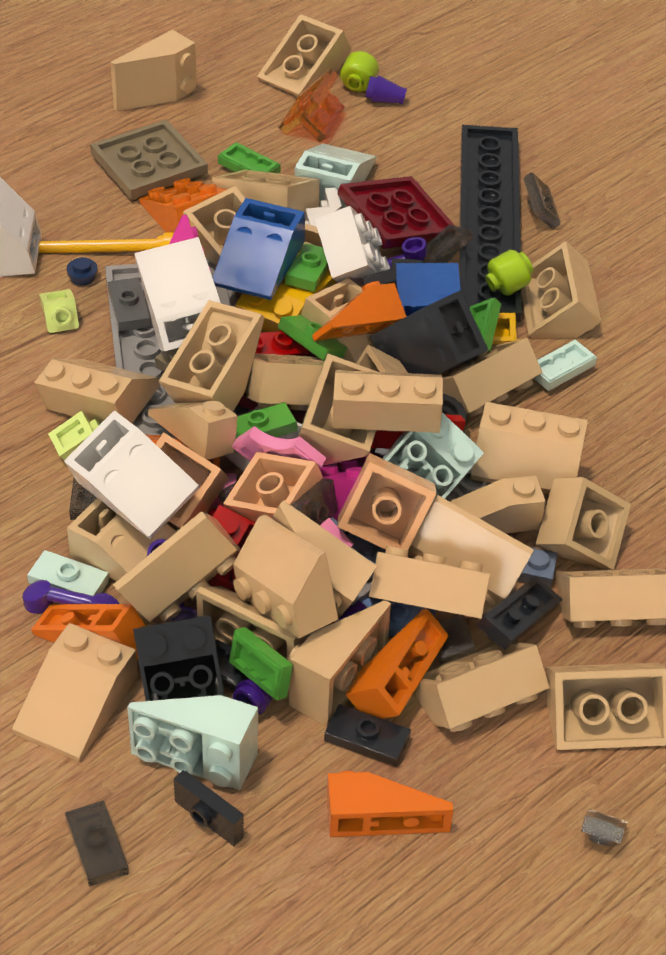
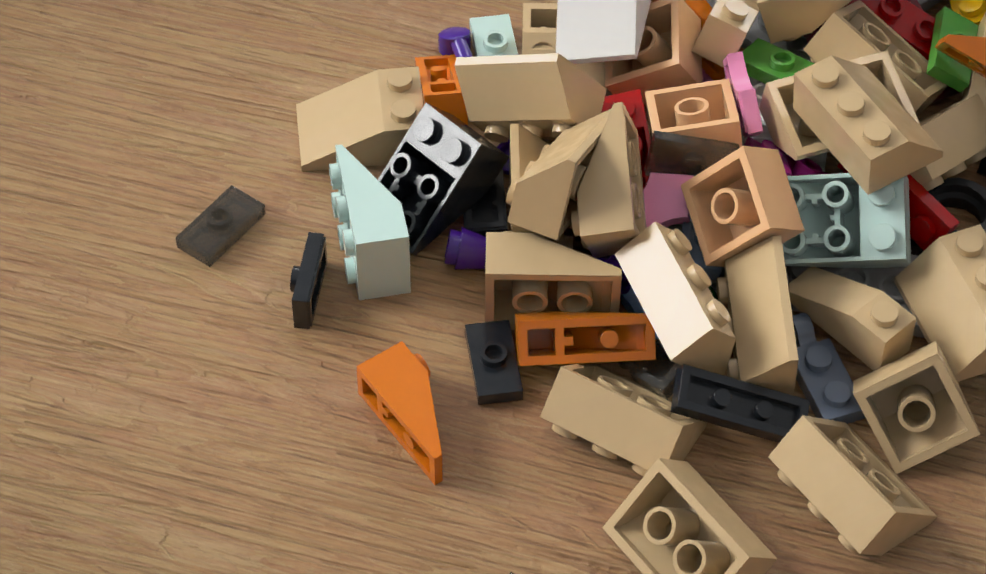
camera: 60 degrees right, 5 degrees up
(261, 663) = (483, 222): bright green plate -> none

